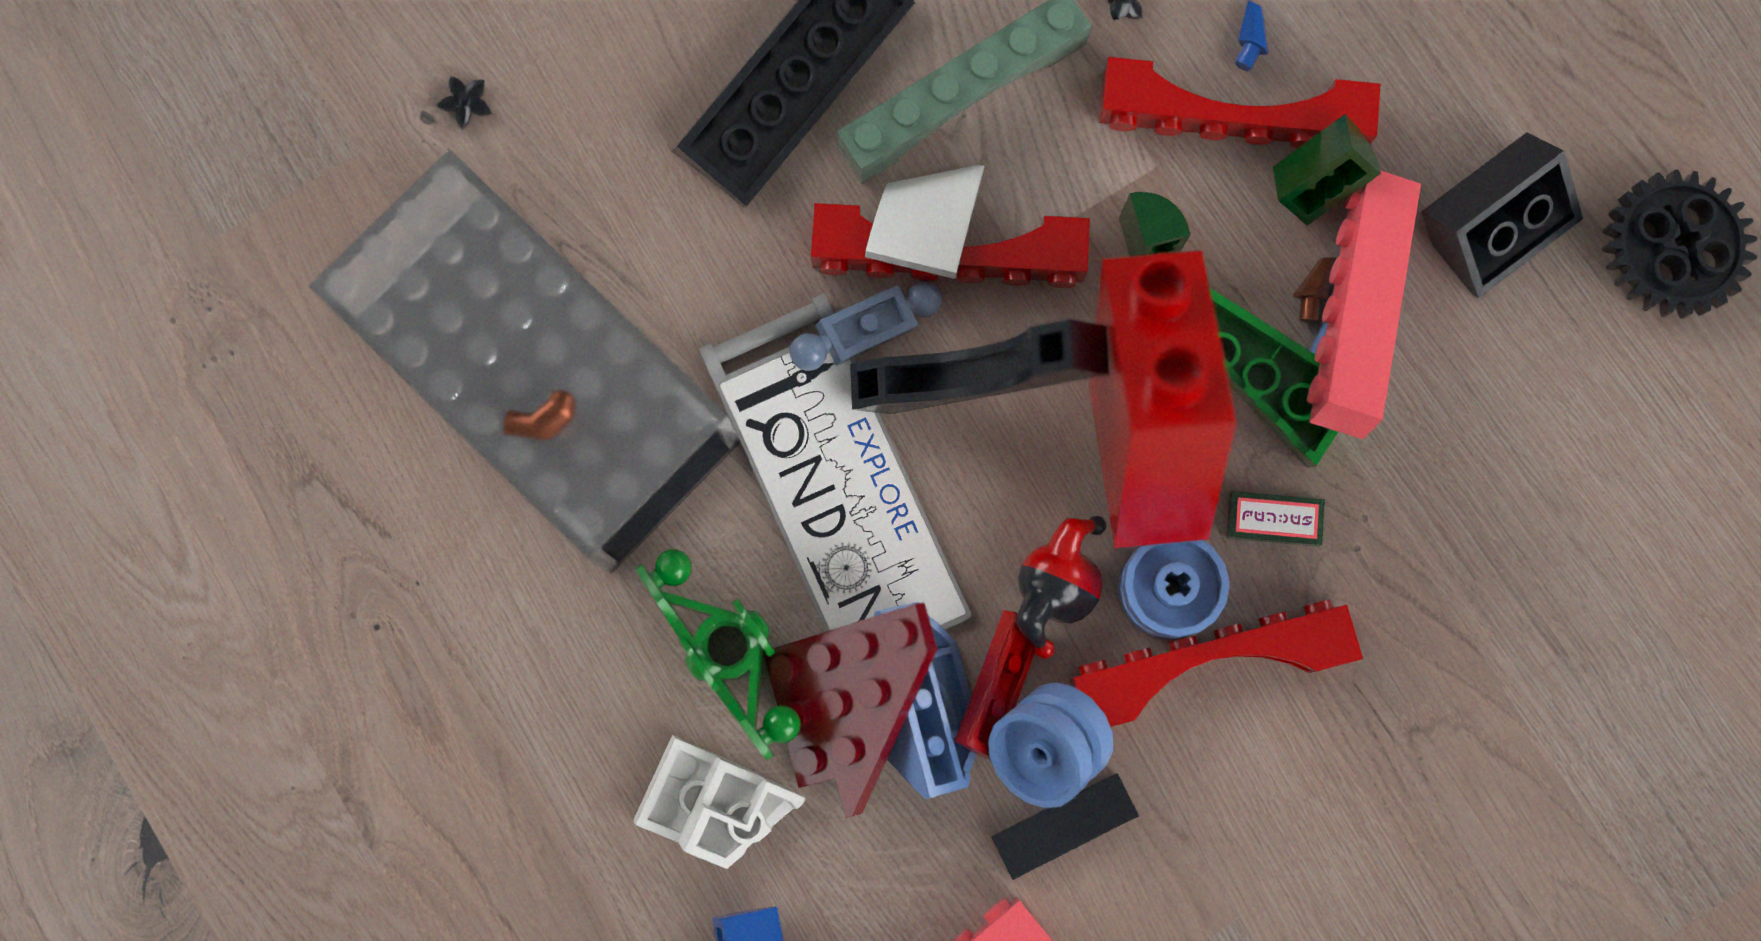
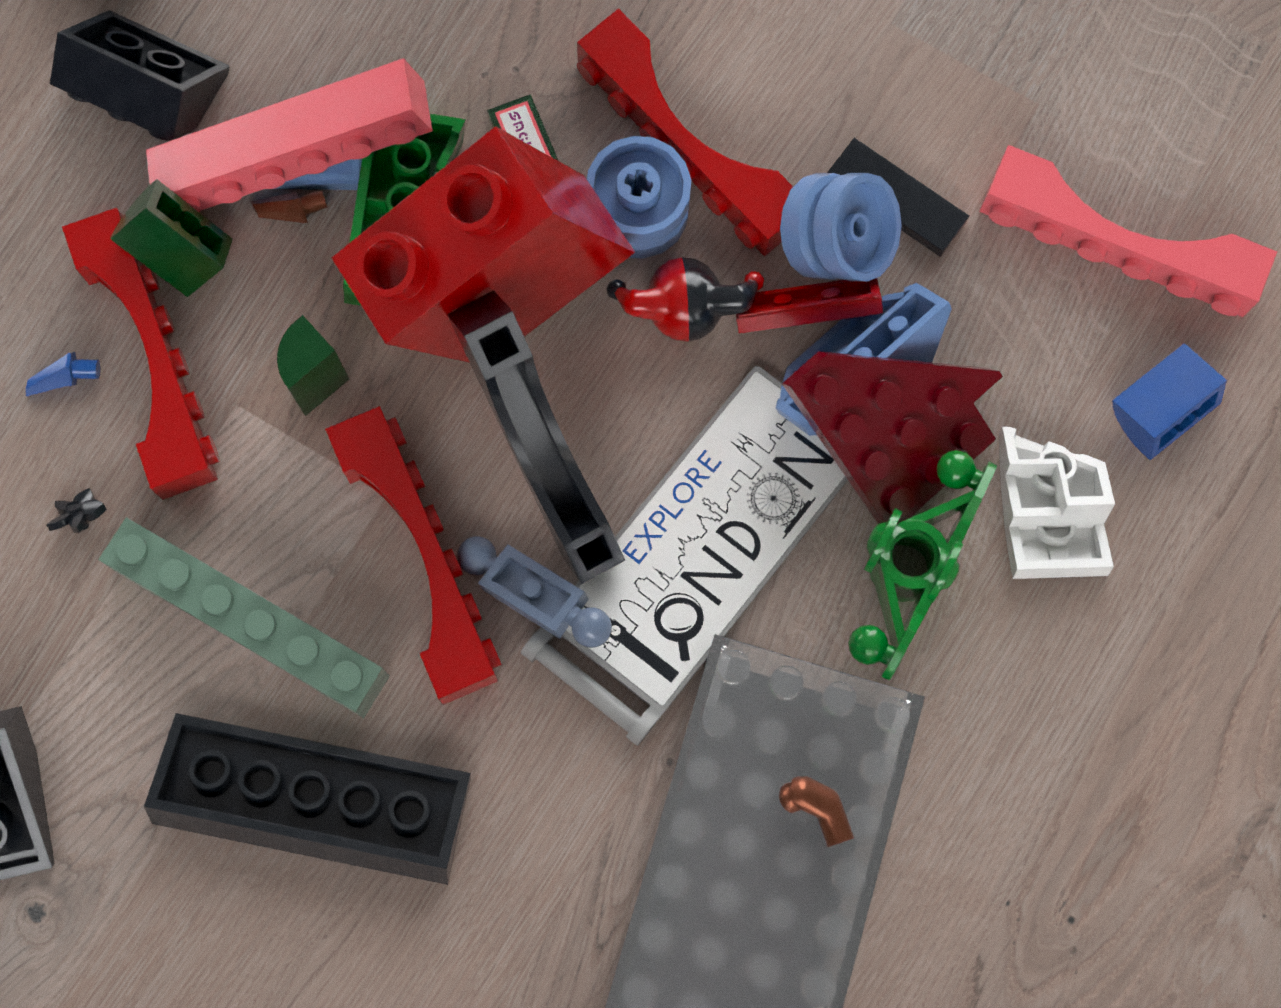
camera: 120 degrees left, 5 degrees down
(926, 221) = (400, 584): white slope -> none

